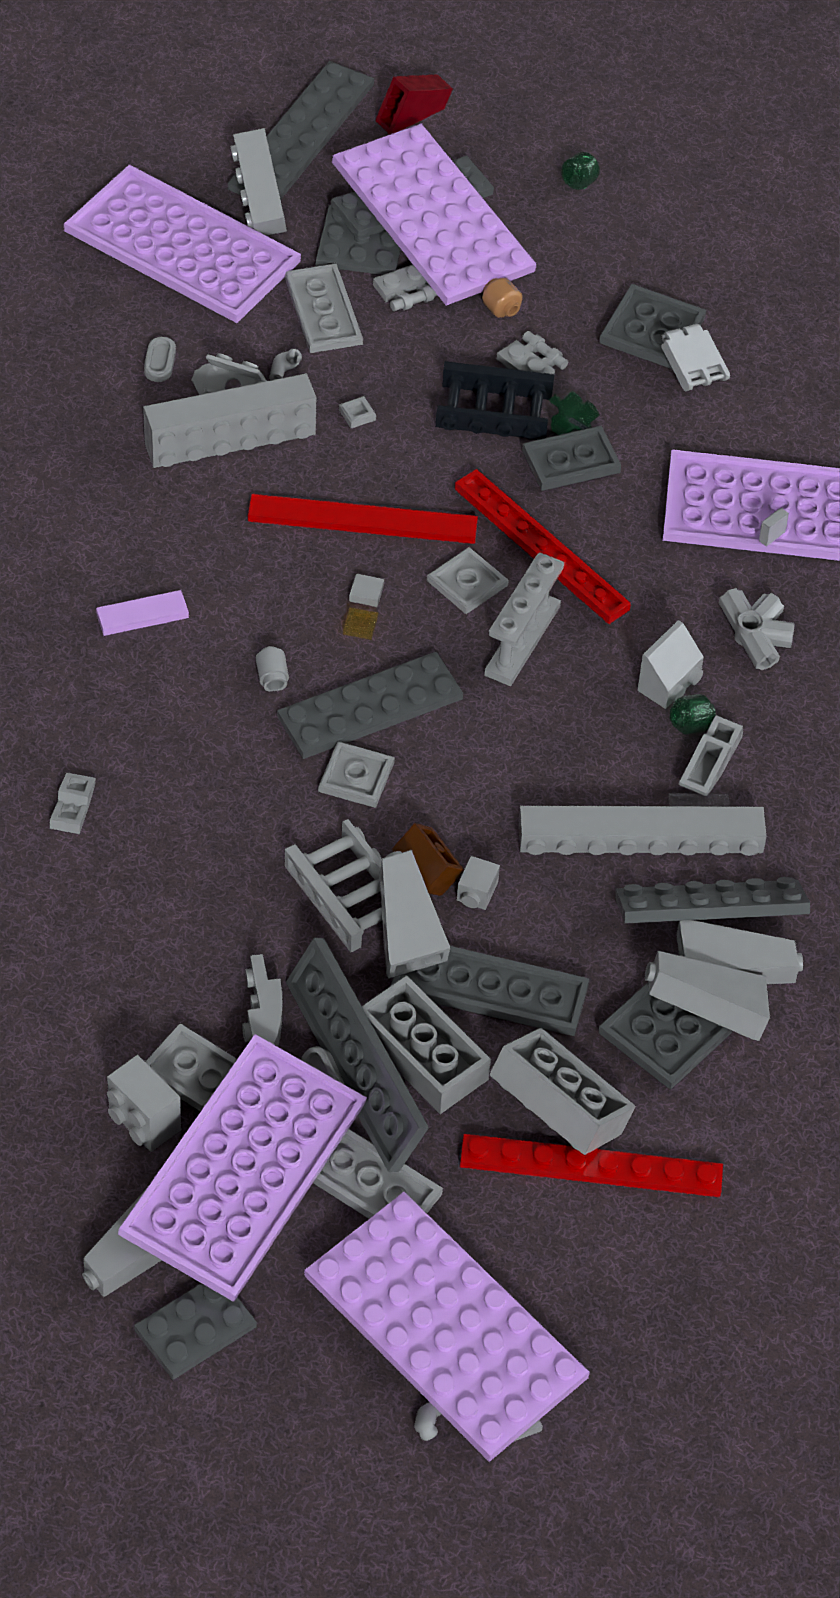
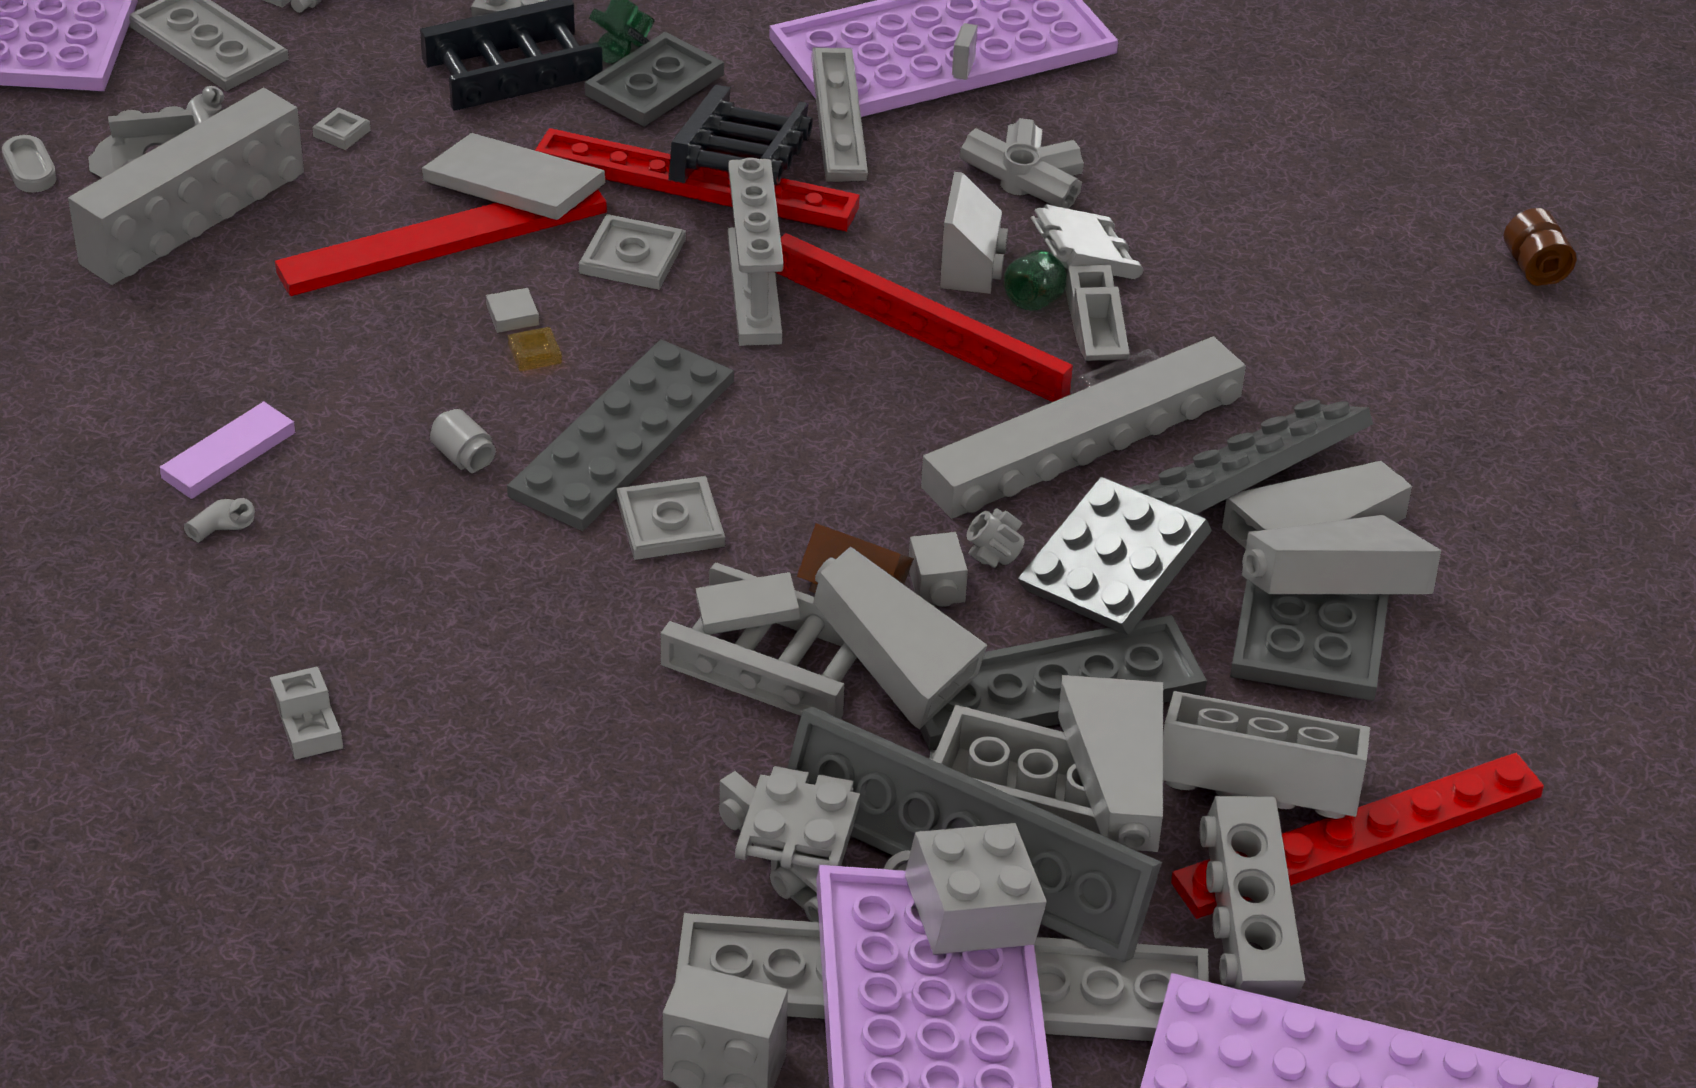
camera: 30 degrees left, 10 degrees down
(109, 655) = (221, 515): none -> light grey arm
(272, 1001) = (799, 818): none -> light grey plate
(321, 1090) = (975, 888): none -> light grey brick
(344, 854) = (747, 603): none -> light grey tile
(431, 495) = (514, 176): none -> light grey tile
(464, 1053) = (1118, 752): none -> light grey slope
(468, 1220) = (1254, 829): none -> light grey brick
(526, 878) = (995, 537): none -> light grey gear
(574, 511) = (727, 133): none -> black fence
(579, 925) = (1115, 555): none -> plate
(605, 715) = (926, 320): none -> red plate
(662, 537) = (839, 114): none -> light grey tile
(744, 700) = (1085, 240): none -> plate

